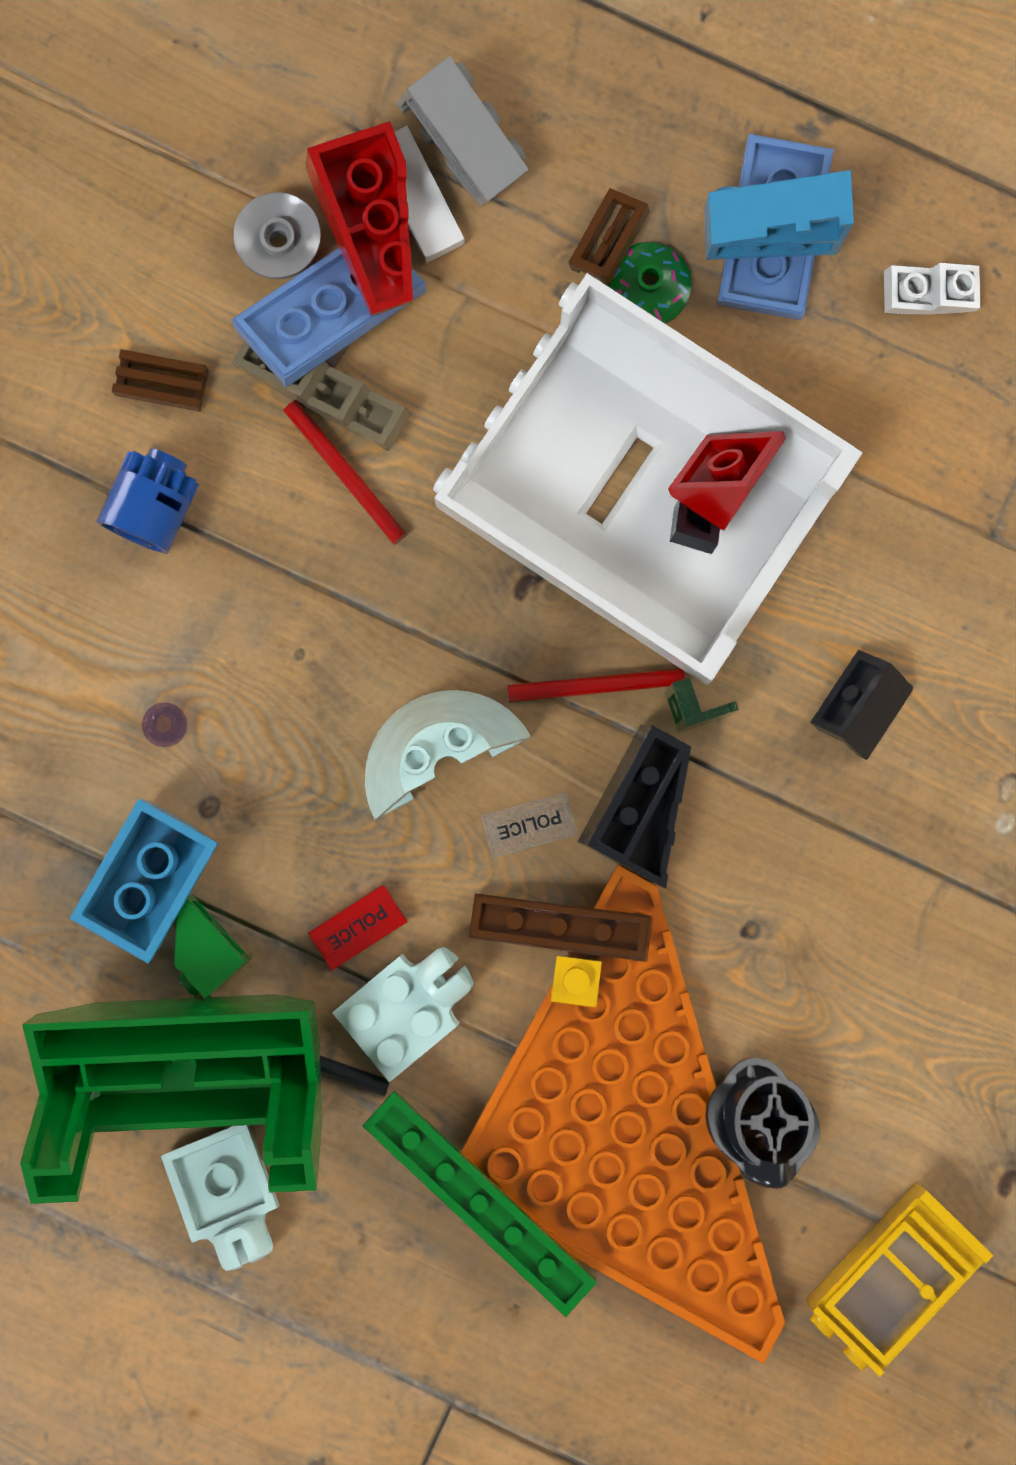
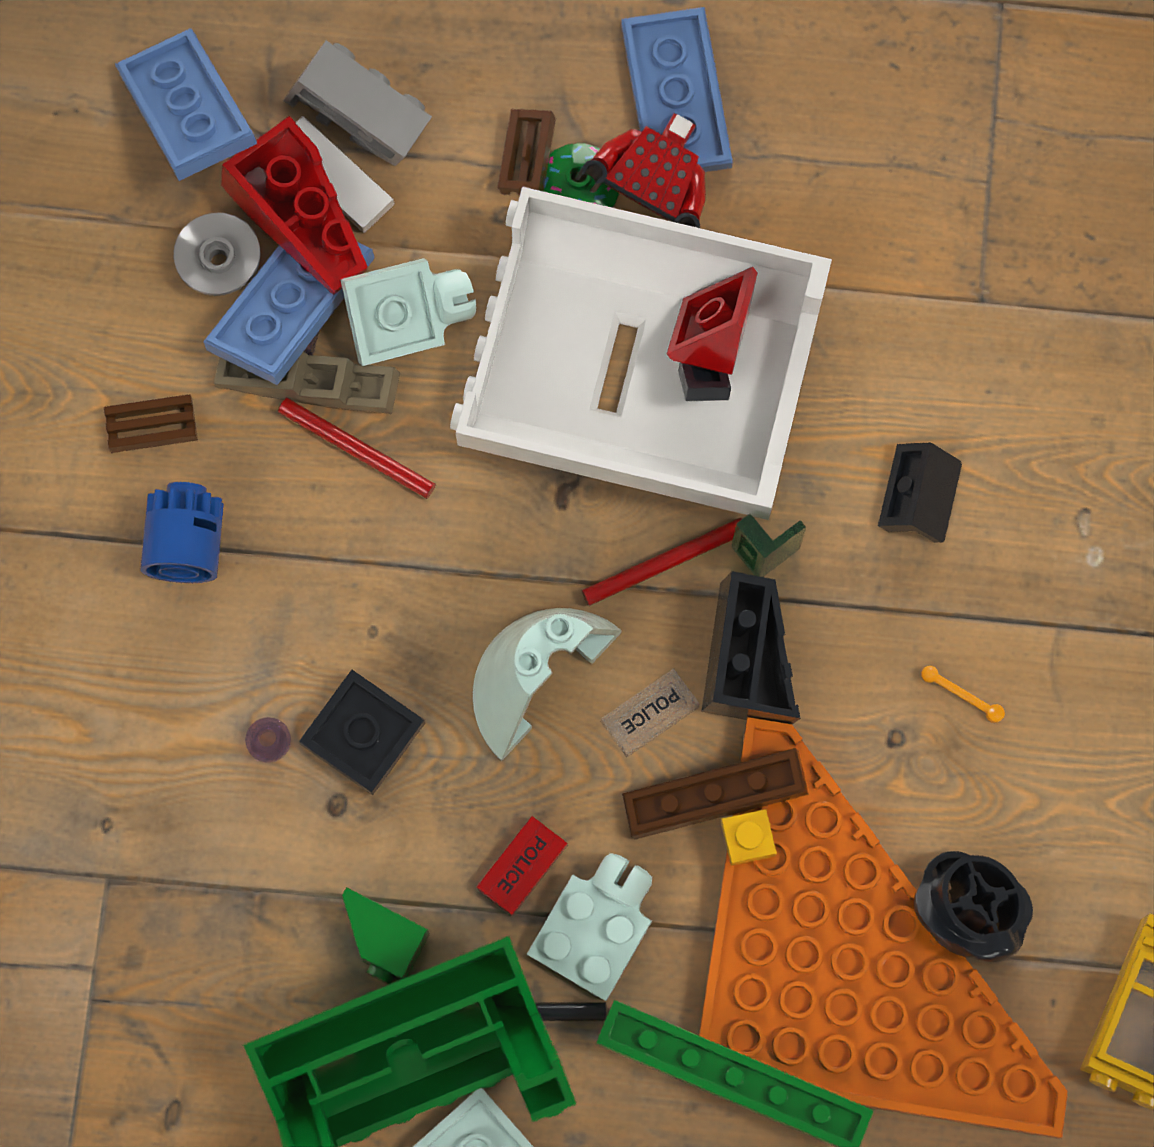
camera: 20 degrees left, 10 degrees down
(144, 880) = (304, 886): dark azure slope -> none
(253, 749) = (362, 732): none -> black plate
(296, 75) = (185, 104): none -> medium blue tile
(435, 353) = (404, 309): none -> light aqua plate
(723, 300) = (653, 171): none -> red torso
(780, 218) = (681, 80): dark azure wedge -> none
(851, 939) = (994, 713): none -> light orange hinge
(932, 290) = (841, 101): white slope -> none

